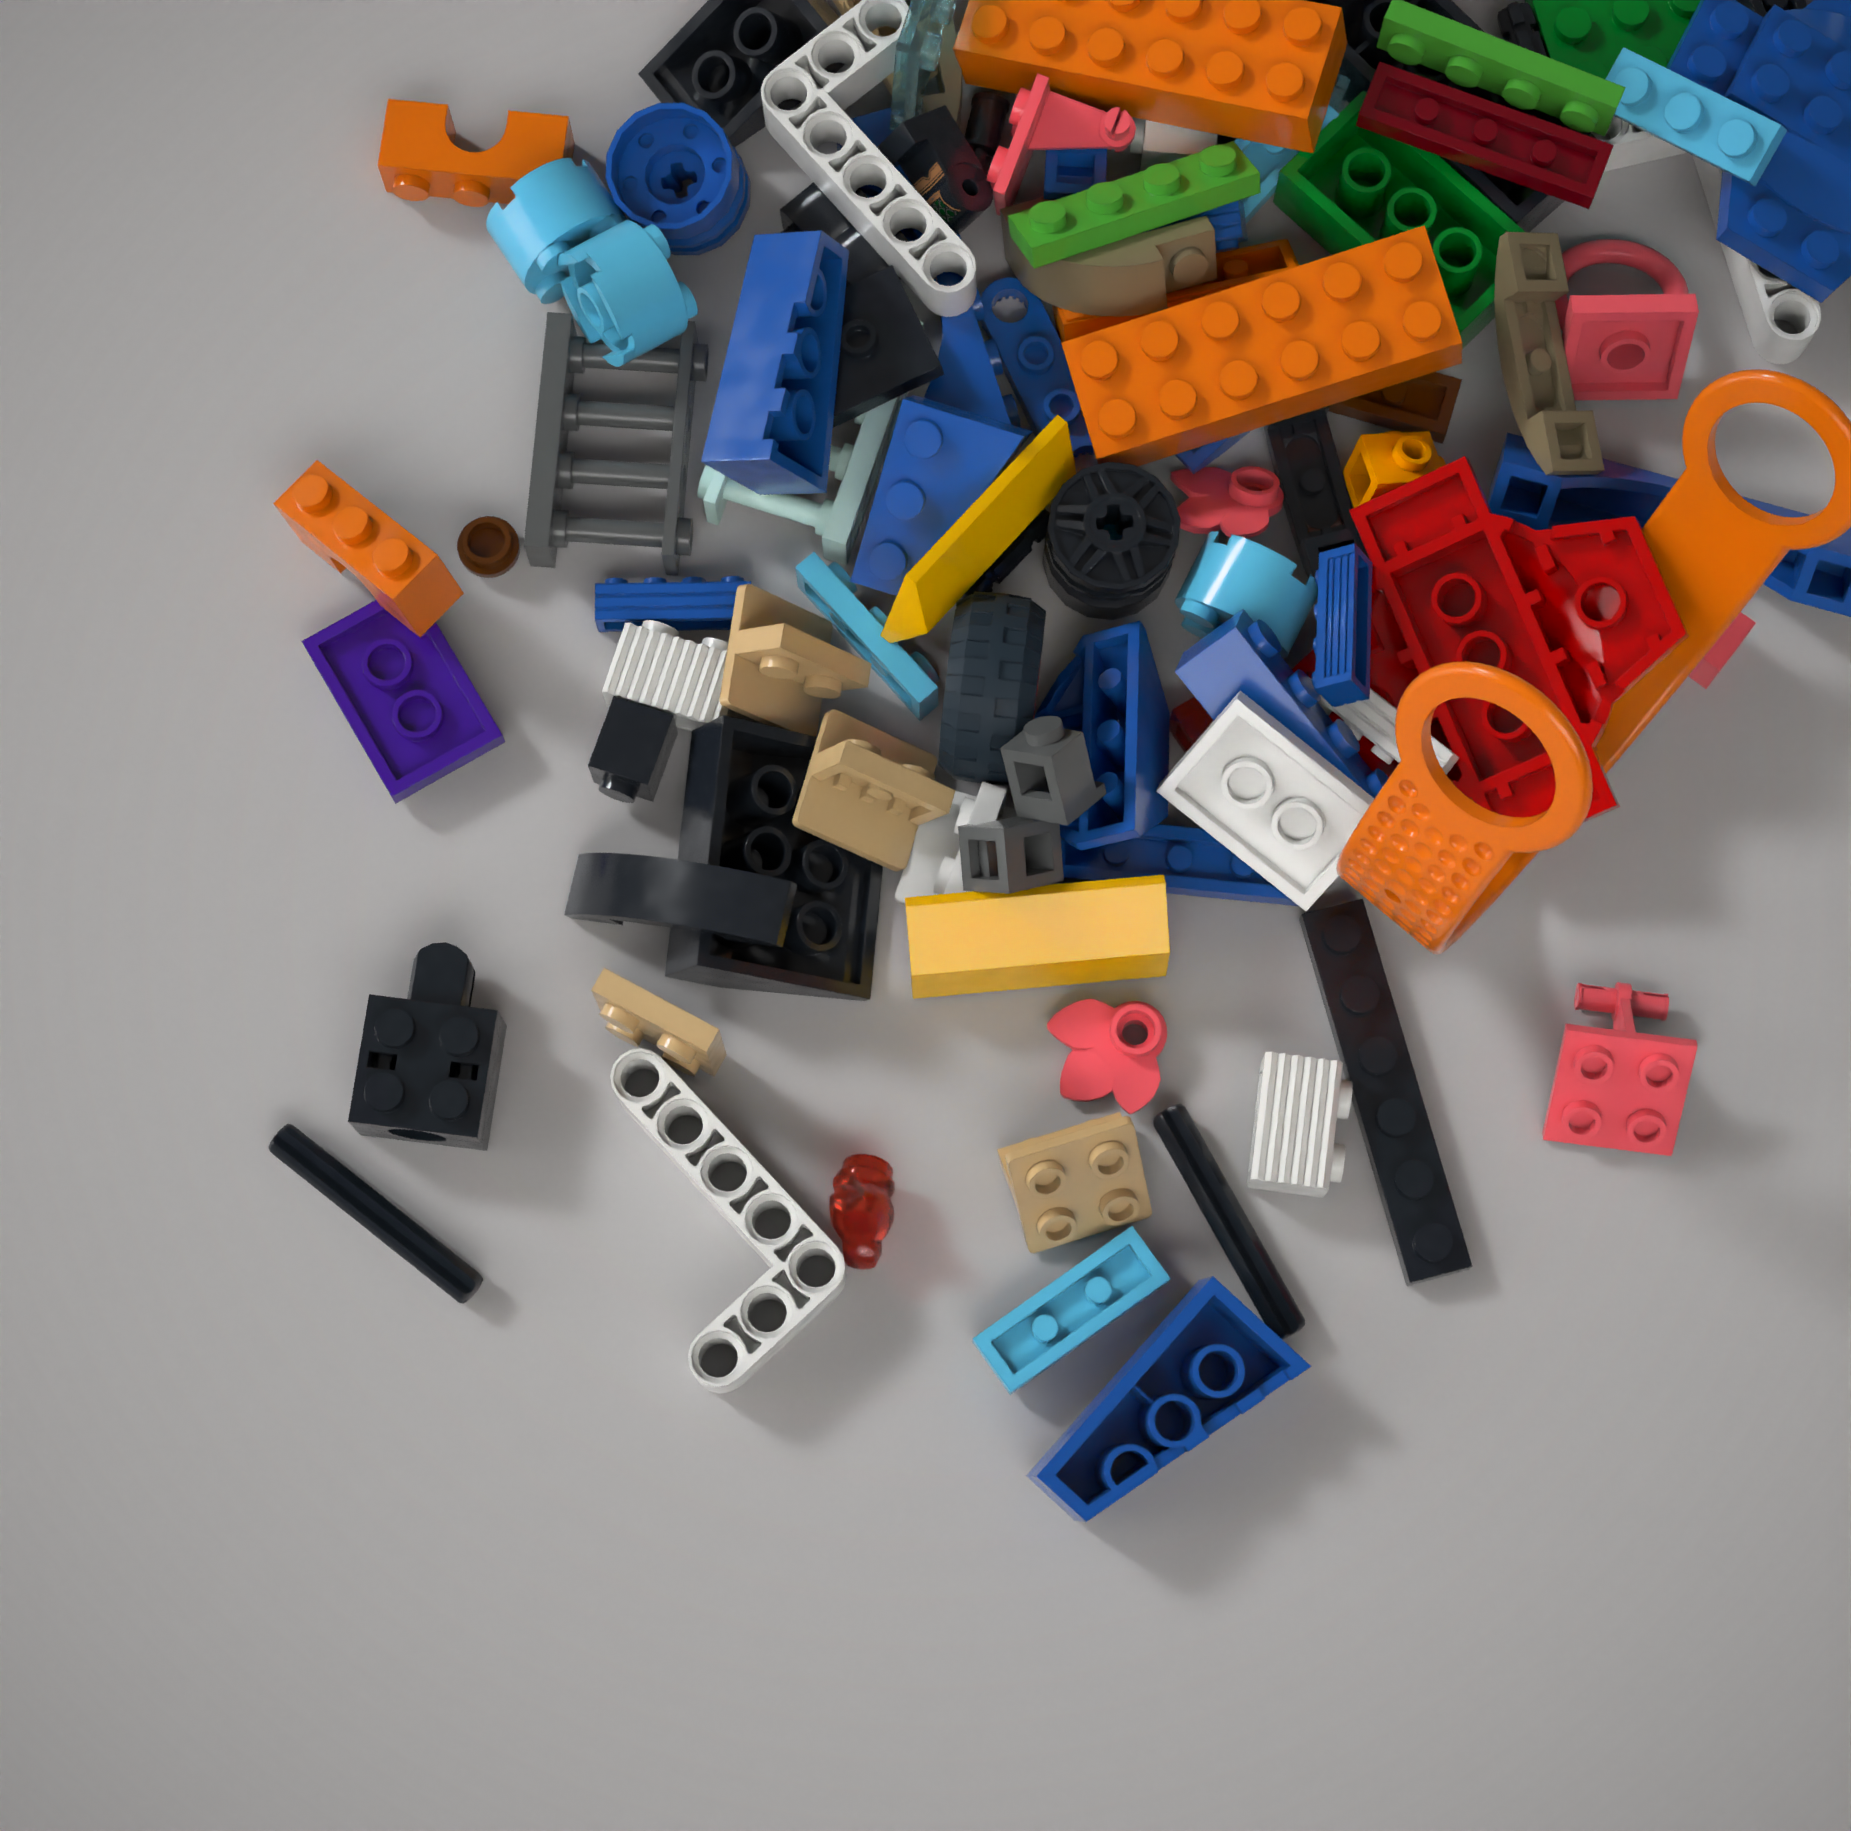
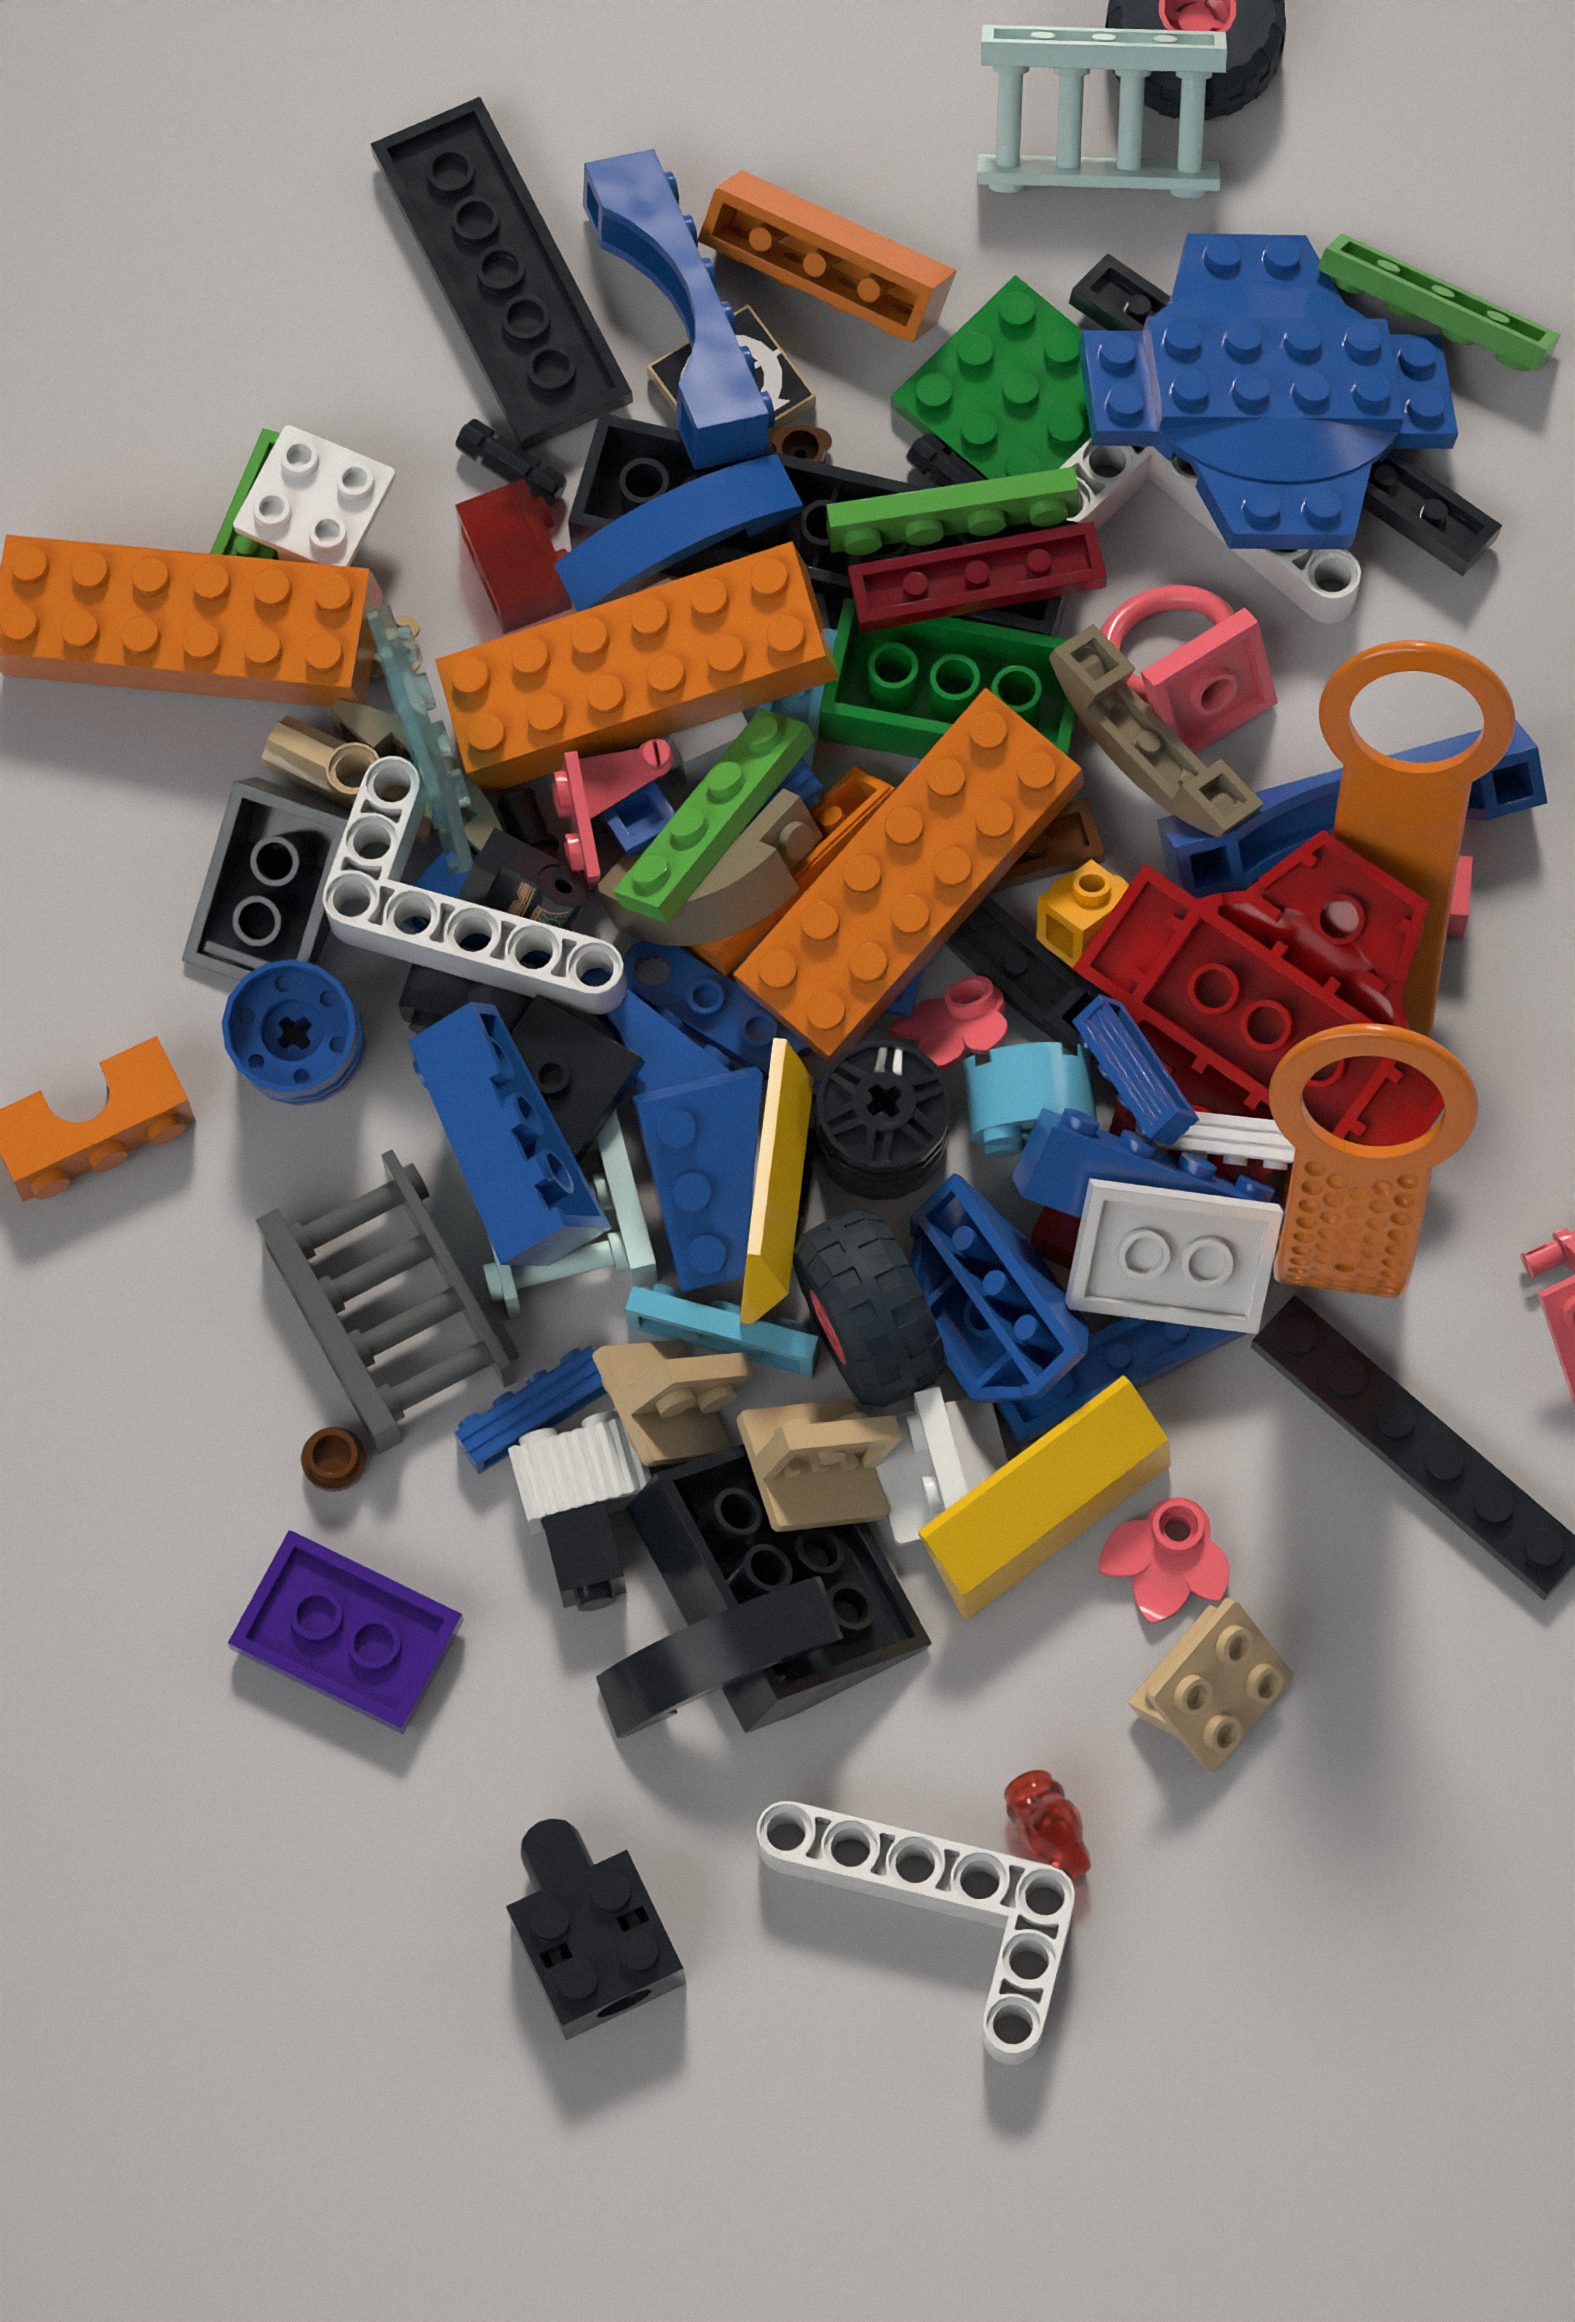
camera: 30 degrees left, 5 degrees down
(375, 1213) = (628, 2096): black axle -> none
(382, 554) = (201, 1516): orange arch -> none
(551, 213) = (217, 1140): medium azure brick -> none
(626, 291) = (320, 1159): medium azure brick -> none
(641, 1015) = (791, 1772): tan plate -> none
(1010, 855) = (983, 1438): dark grey brick -> none
(1050, 772) = (969, 1335): dark grey brick -> none
(1071, 1310) = (1280, 1797): medium azure plate -> none
(1171, 1394) = (1412, 1811): blue wedge -> none
(1228, 1221) = (1362, 1639): black axle -> none
(1297, 1125) = (1366, 1520): white brick -> none
(1694, 117) = (1144, 455): medium azure plate -> none

